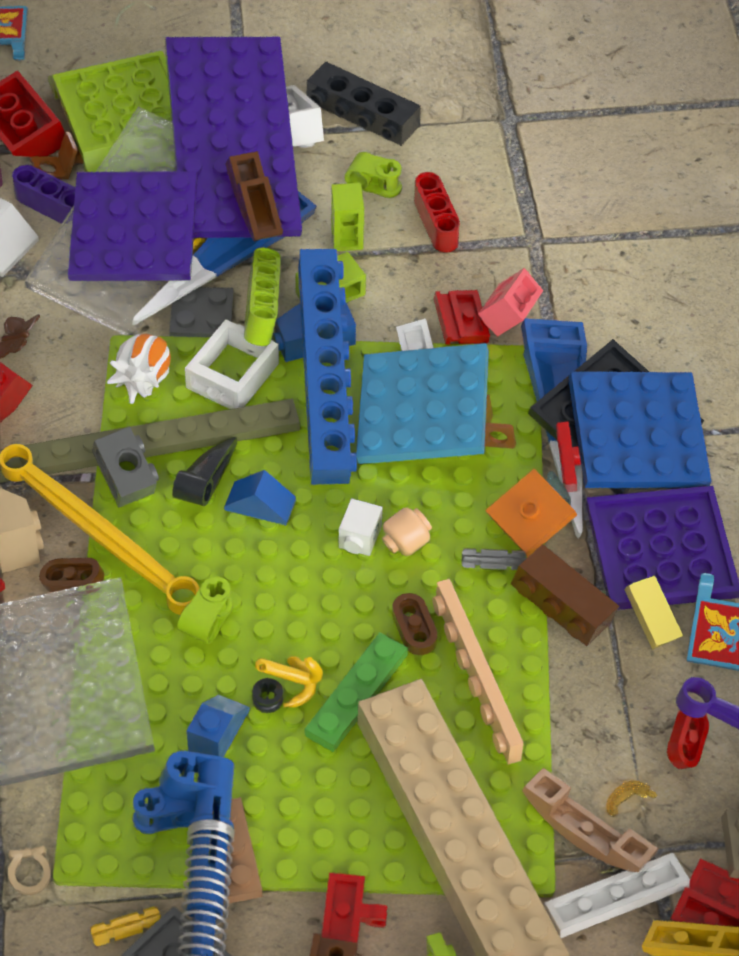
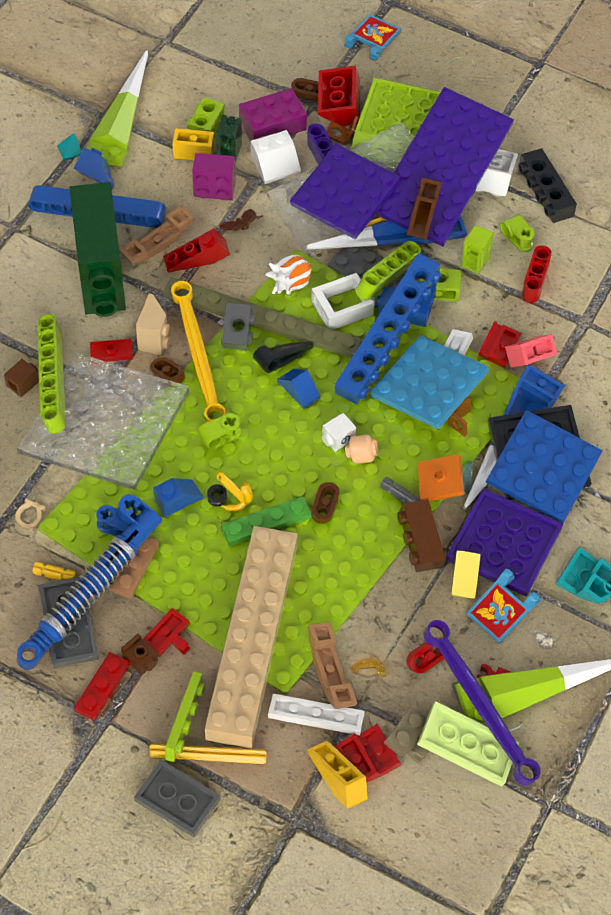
camera: 35 degrees right, 5 degrees up
(480, 680) = (334, 556): light nougat plate -> none
(568, 456) = (486, 458): red plate -> none

